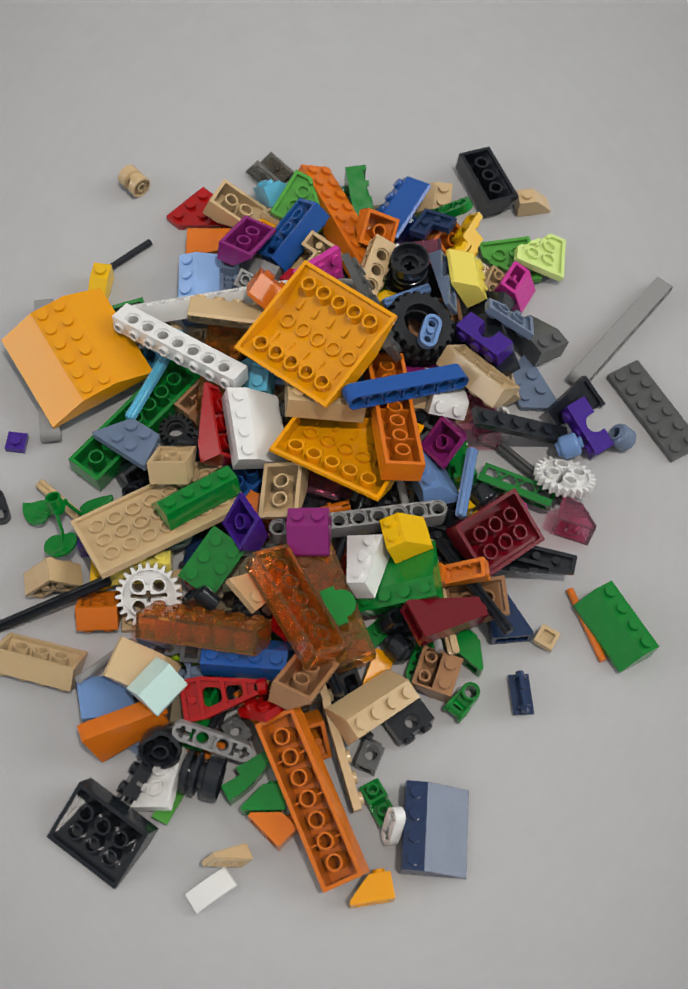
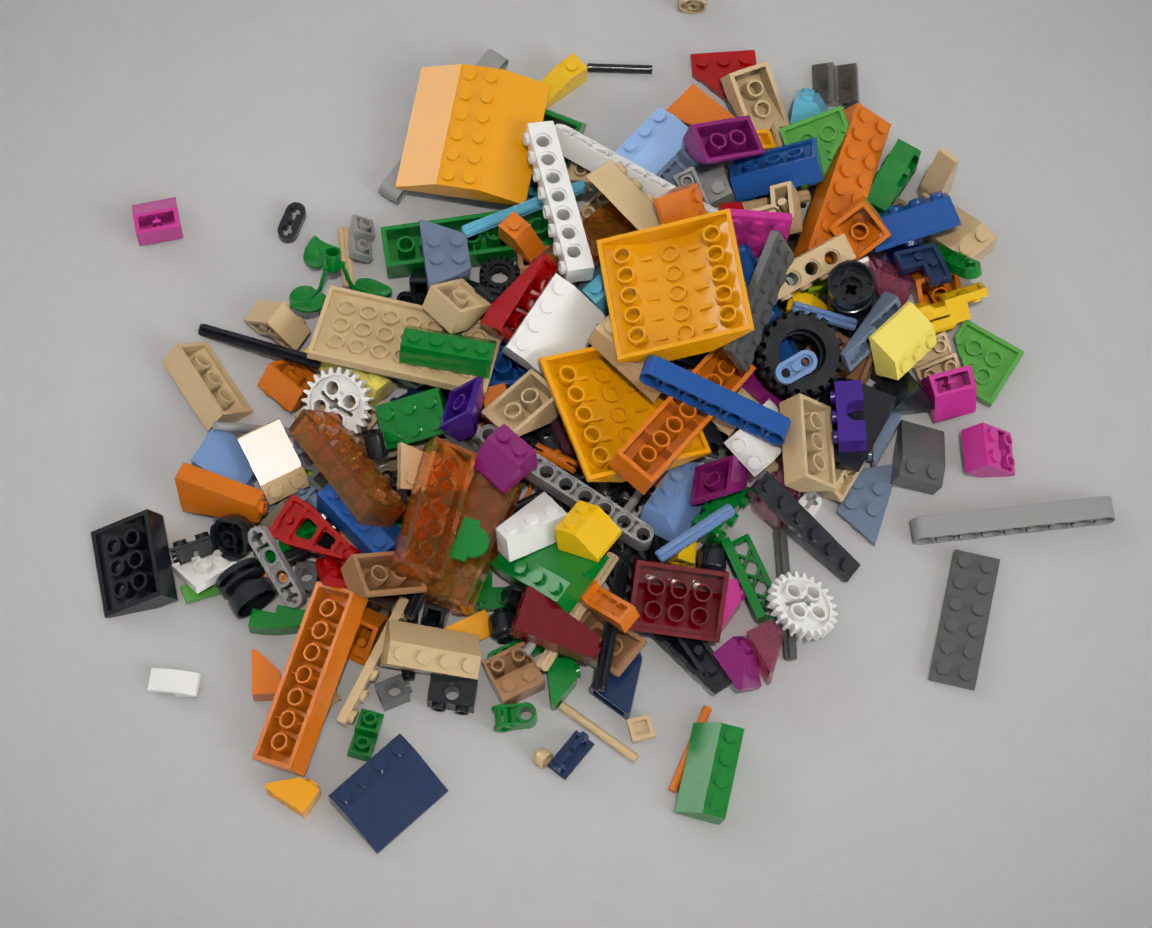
camera: 45 degrees right, 5 degrees up
(16, 442) = (358, 175): dark purple plate -> none
(57, 480) = (360, 238): none -> light grey slope
(157, 686) = (270, 484): light aqua slope -> none
(172, 392) = (520, 237): none -> orange slope
(230, 857) = (210, 670): tan slope -> none
(266, 799) = (274, 649): green slope -> none
(386, 172) = (940, 174): none -> tan slope
(393, 825) = (356, 759): white beam -> none
(486, 181) = (1039, 260): black slope -> none
(505, 712) = (542, 757): none -> tan hinge
(509, 319) = (901, 421): sand blue wing -> none
(522, 664) = (599, 732): none -> tan bar
(530, 203) = (1065, 320): tan slope -> none
(543, 256) = (1013, 383): yellowish green plate -> none
(565, 540) = (739, 663): none -> magenta slope
(567, 305) = (987, 451): none -> dark pink slope
(569, 446) = (836, 582): medium blue head -> none
(576, 416) = (872, 558): dark purple arch -> none
(580, 388) = (890, 547): black wing -> none
(622, 436) = (899, 616): sand blue head -> none

